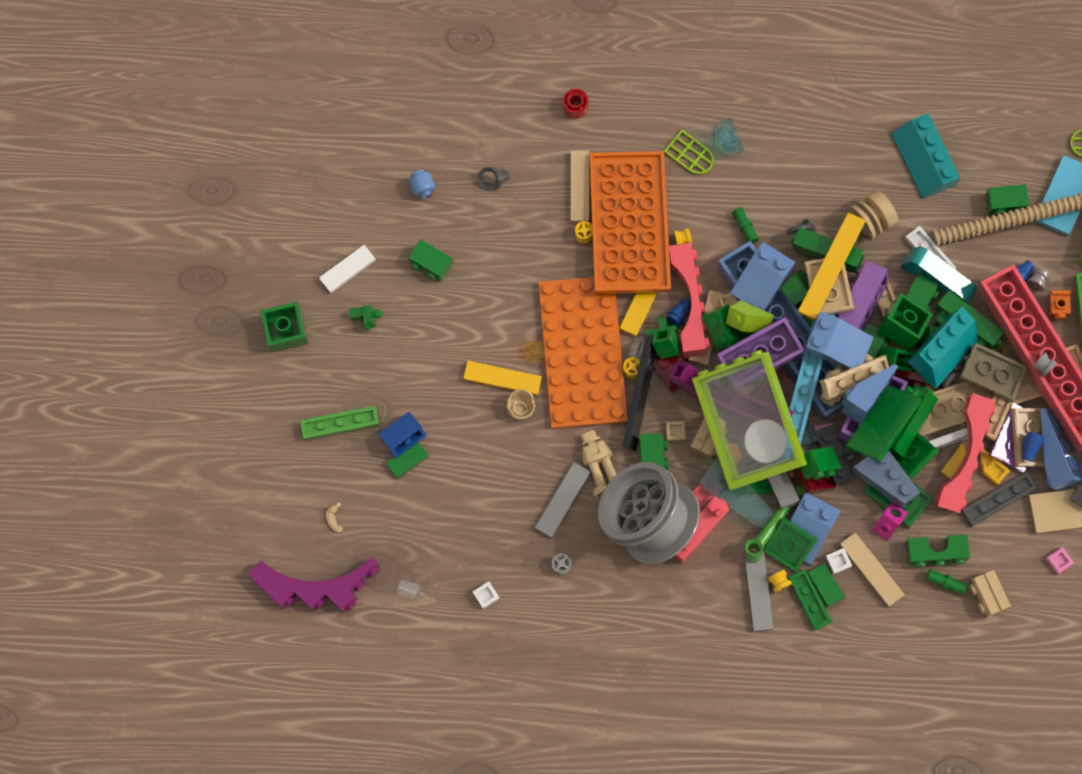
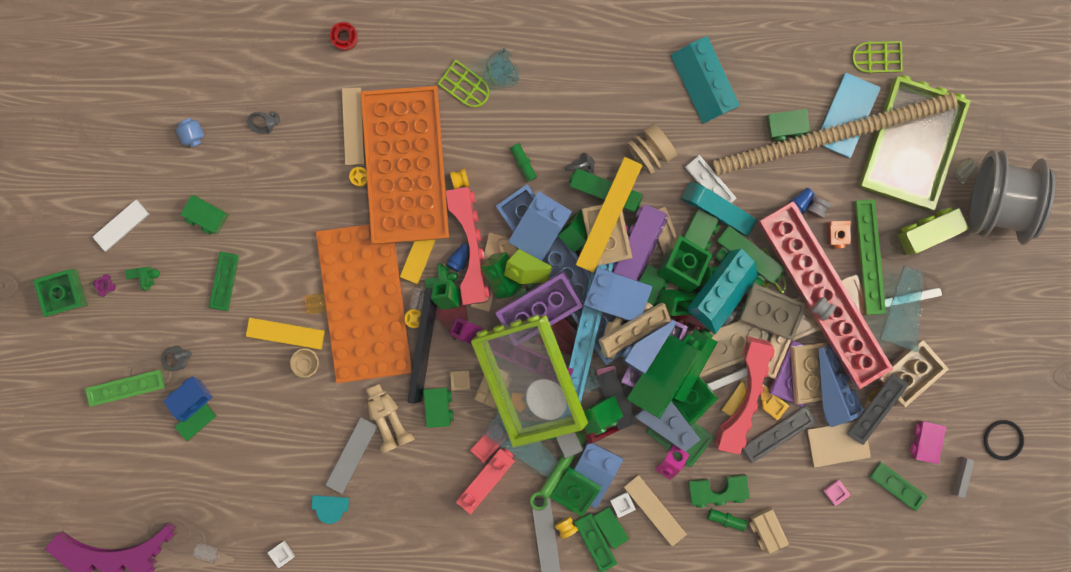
camera: 10 degrees left, 15 degrees up
(328, 318) = (98, 284): none -> magenta plate
(331, 518) = (124, 483): tan piece -> none
(400, 395) = (179, 355): none -> dark grey piece
(444, 326) = (224, 281): none -> green tile
(538, 551) = (330, 508): none -> teal piece
(561, 560) = (350, 523): light grey wheel -> none
(648, 512) = (433, 478): light grey wheel -> none
(1031, 445) = (810, 384): blue cone -> none

